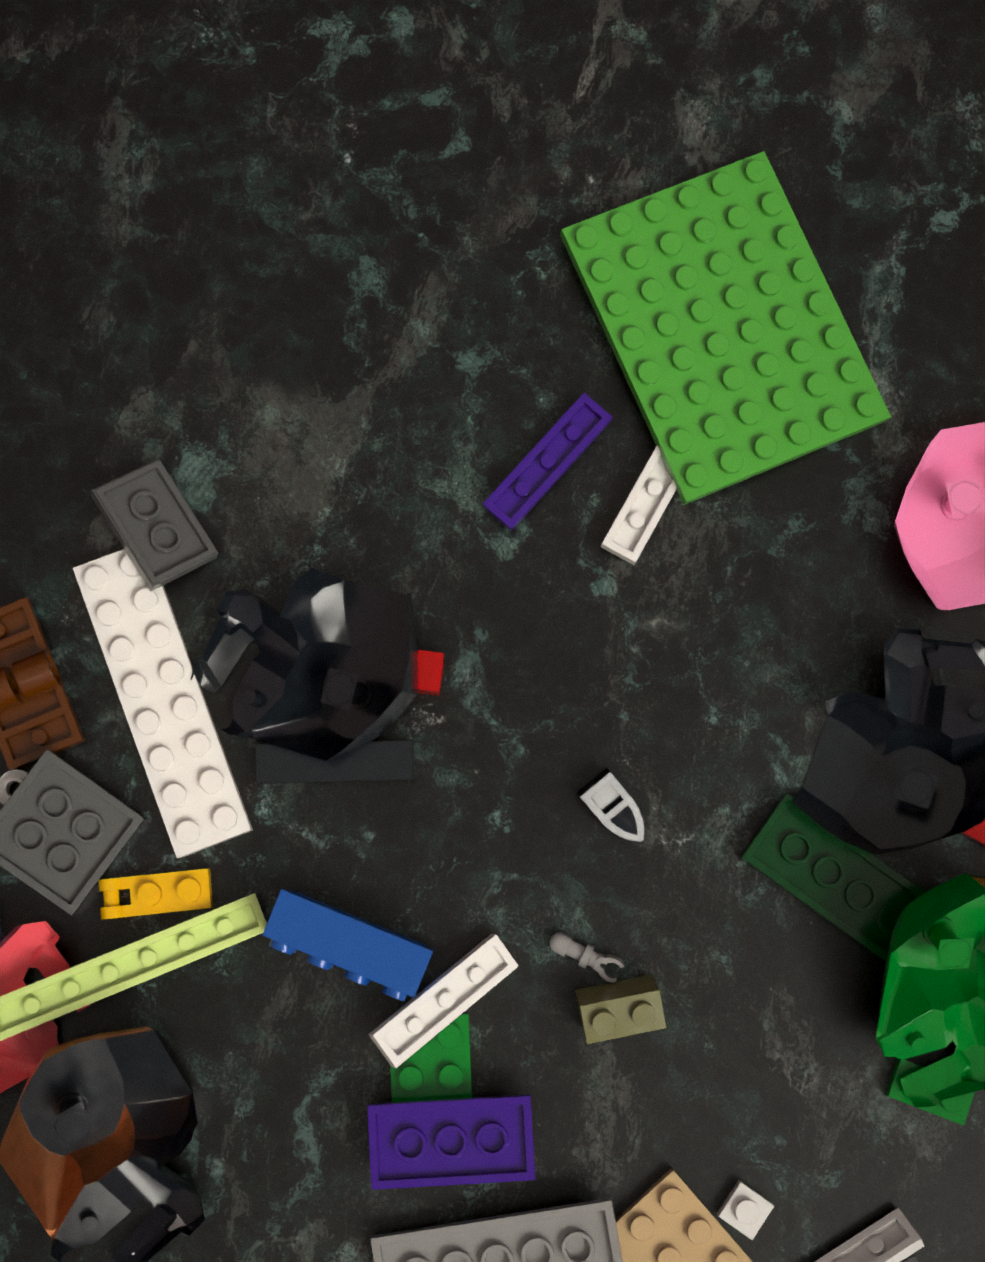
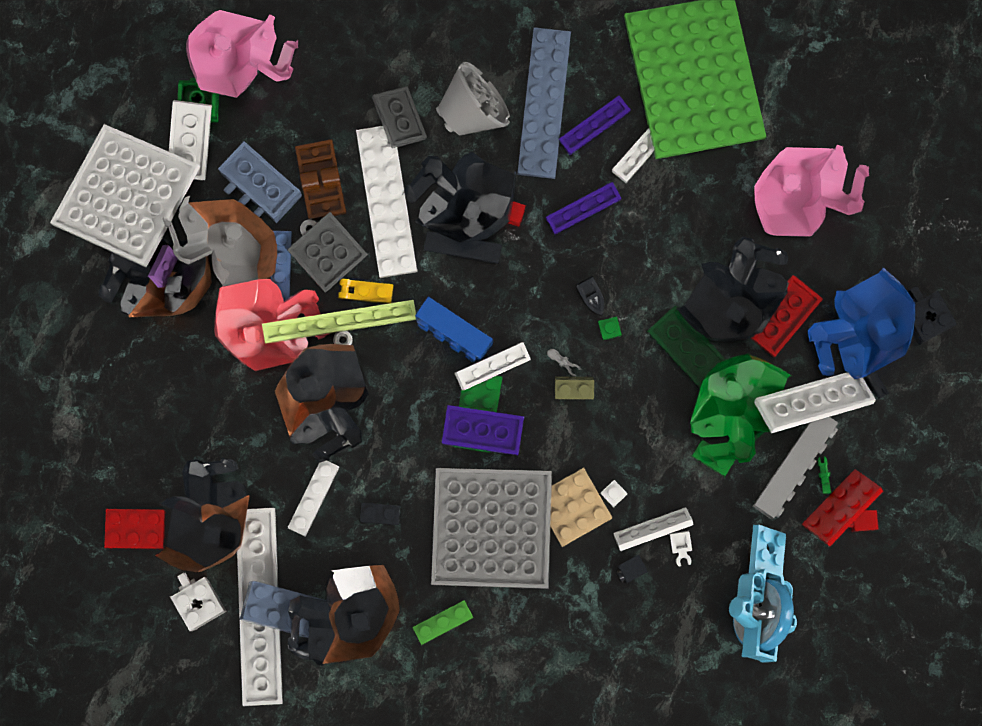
camera: 15 degrees right, 0 degrees up
(115, 1009) = (346, 334): none -> white plate
(294, 467) = (472, 103): none -> light grey cone
(438, 439) = (544, 103): none -> sand blue plate
(560, 633) = (583, 208): none -> dark purple plate
(664, 866) = (609, 328): none -> green plate

